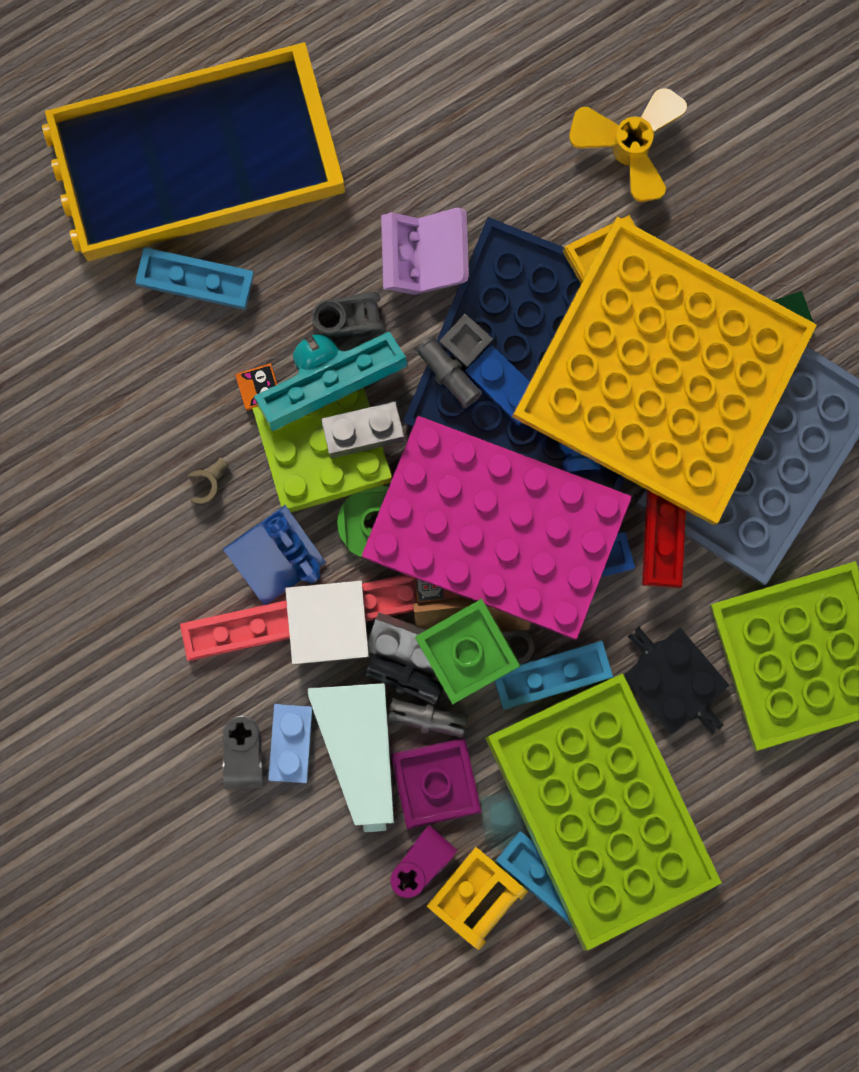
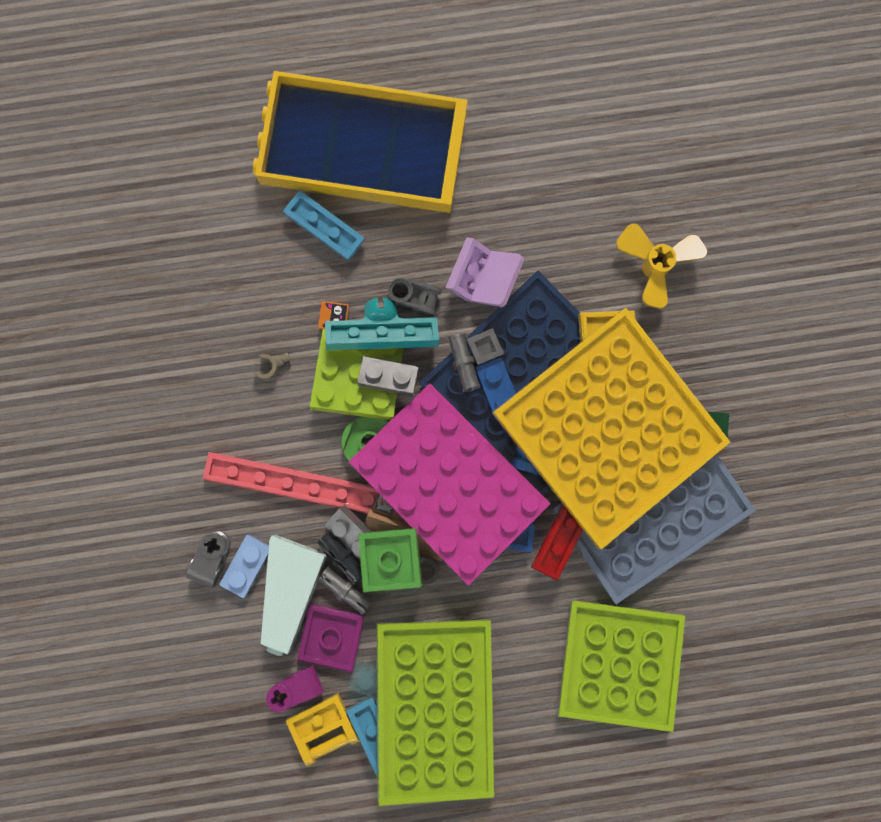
camera: 25 degrees right, 0 degrees up
(275, 556) = (292, 435): blue hinge -> none
(327, 622) = (306, 496): white tile -> none
(554, 675) = (444, 601): dark azure plate -> none
(675, 680) = (524, 641): black plate -> none

